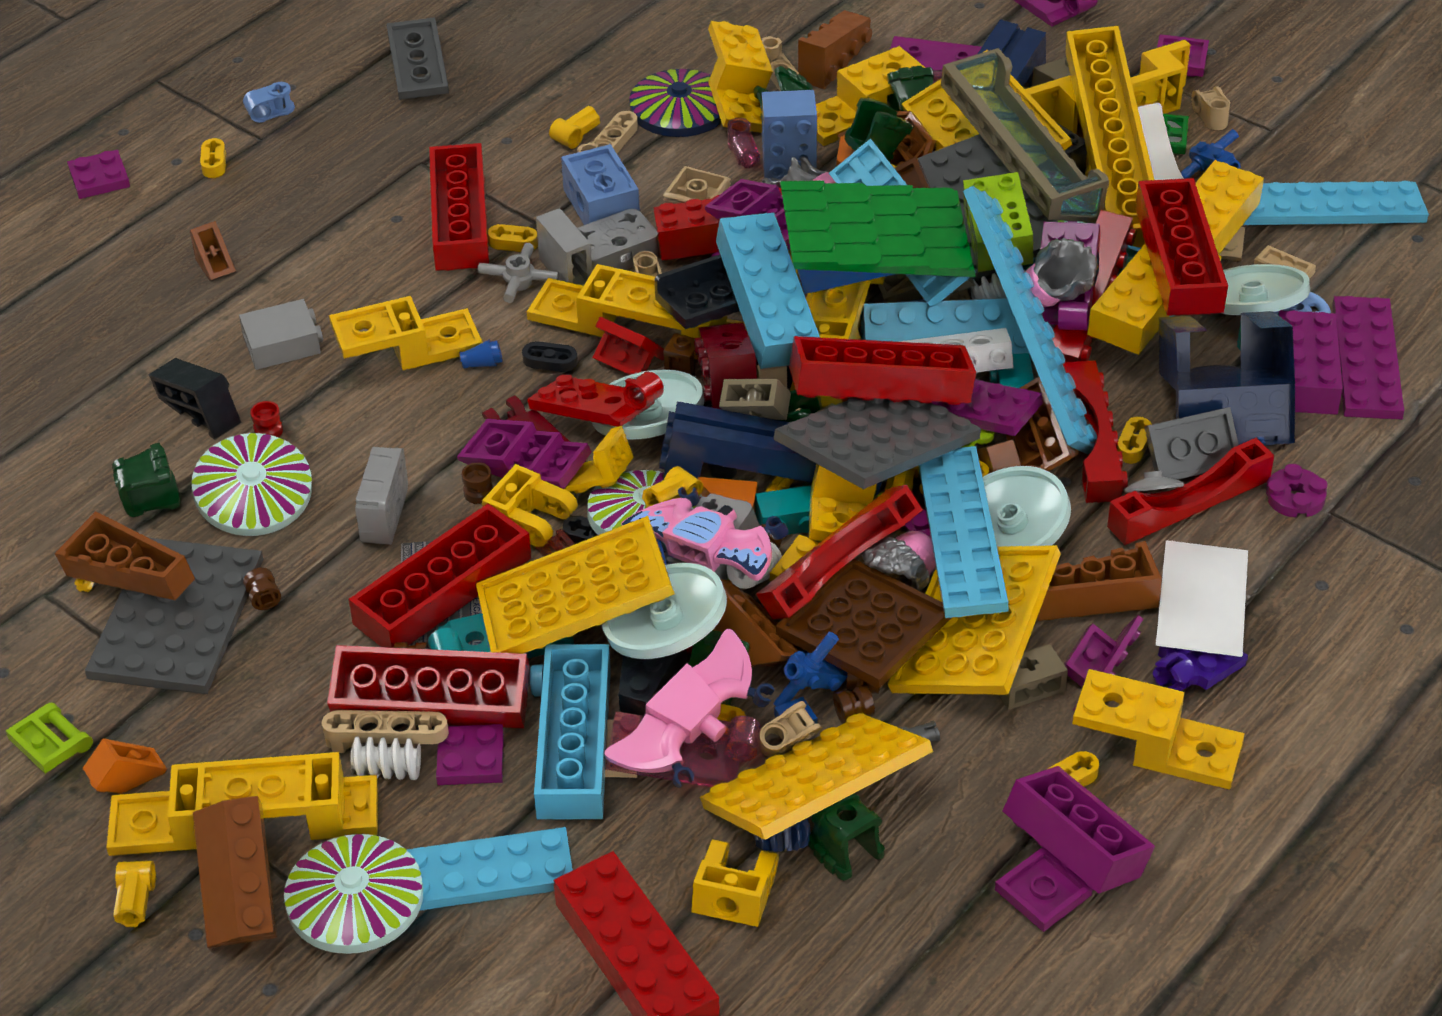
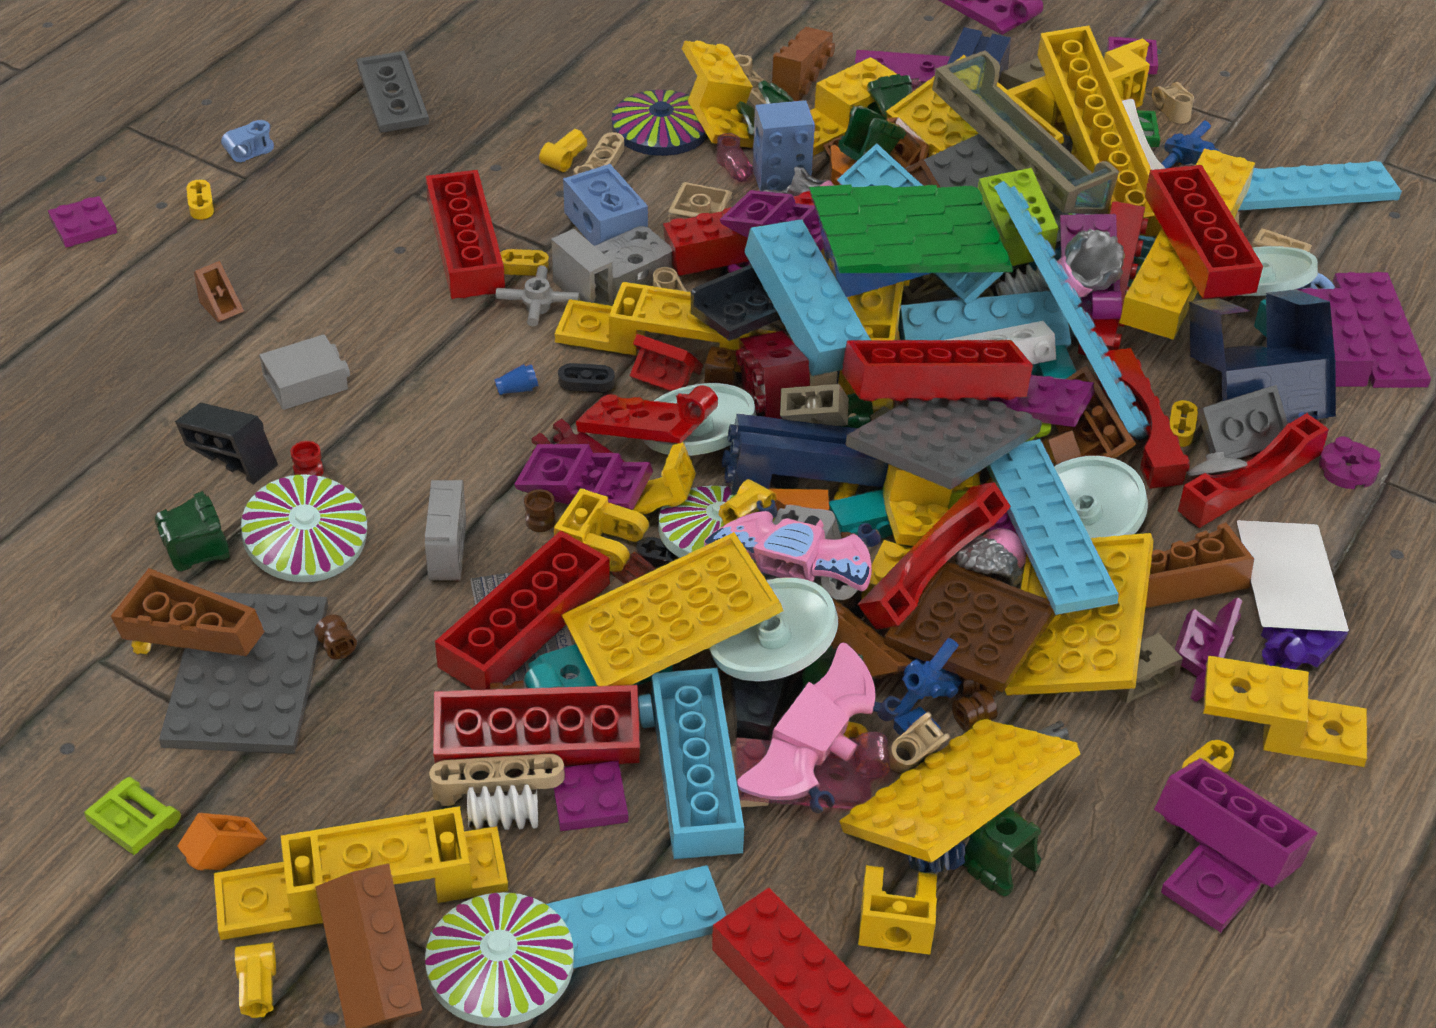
camera: 10 degrees left, 0 degrees up
(399, 326) = (432, 357): yellow bracket -> none

